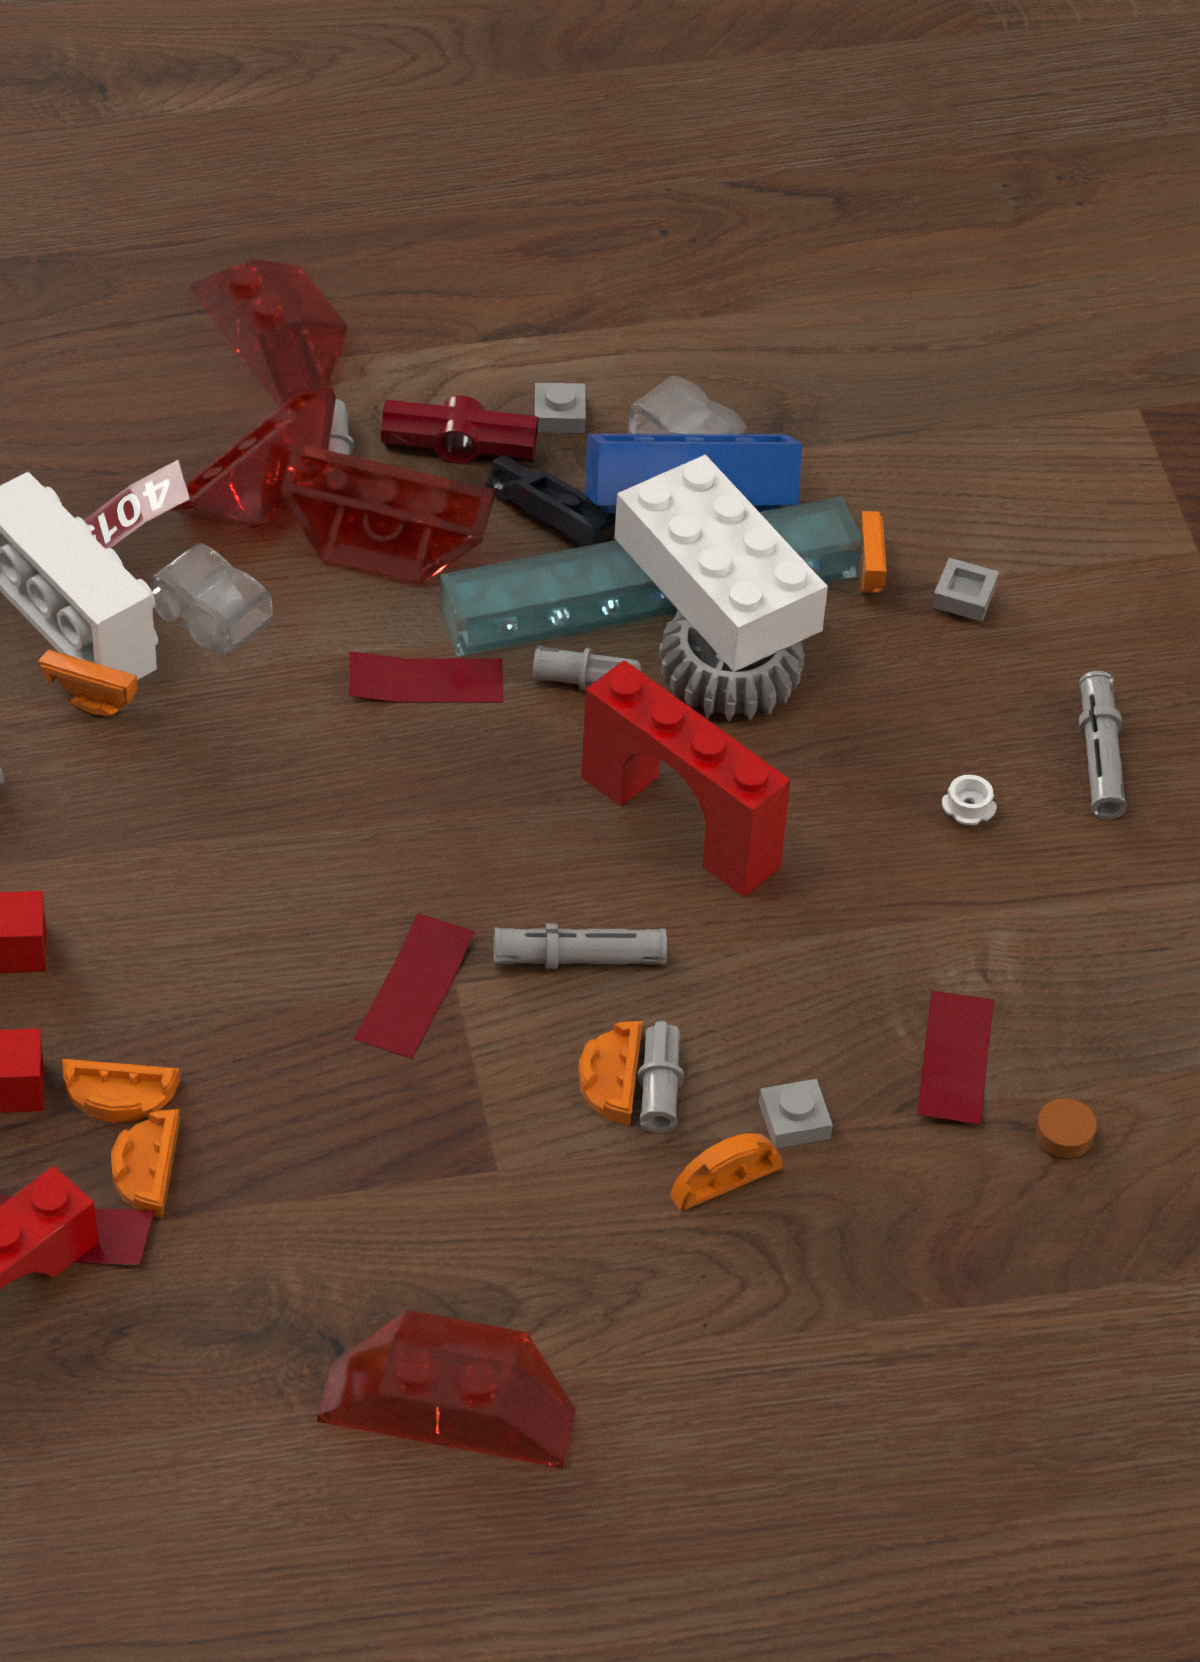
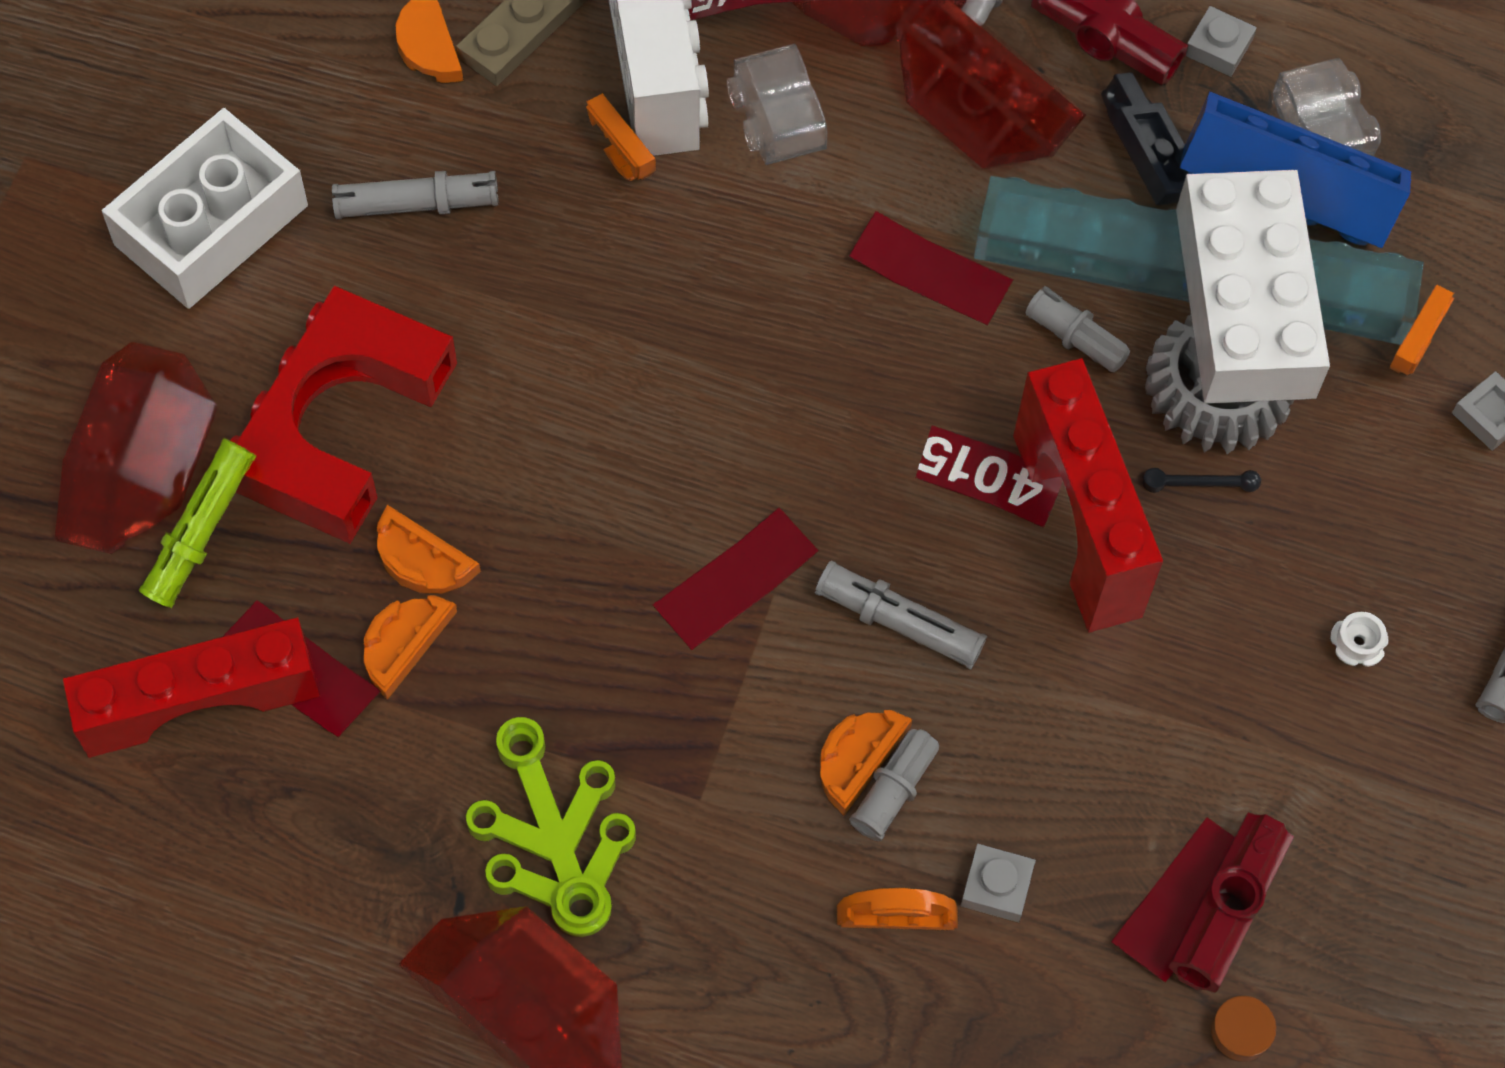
camera: 30 degrees right, 15 degrees up
(386, 1252) = (555, 838): none -> lime plant
(578, 815) = (986, 475): none -> dark red sticker
(801, 726) = (1155, 480): none -> black hinge
(997, 1036) = (1217, 929): none -> dark red piece

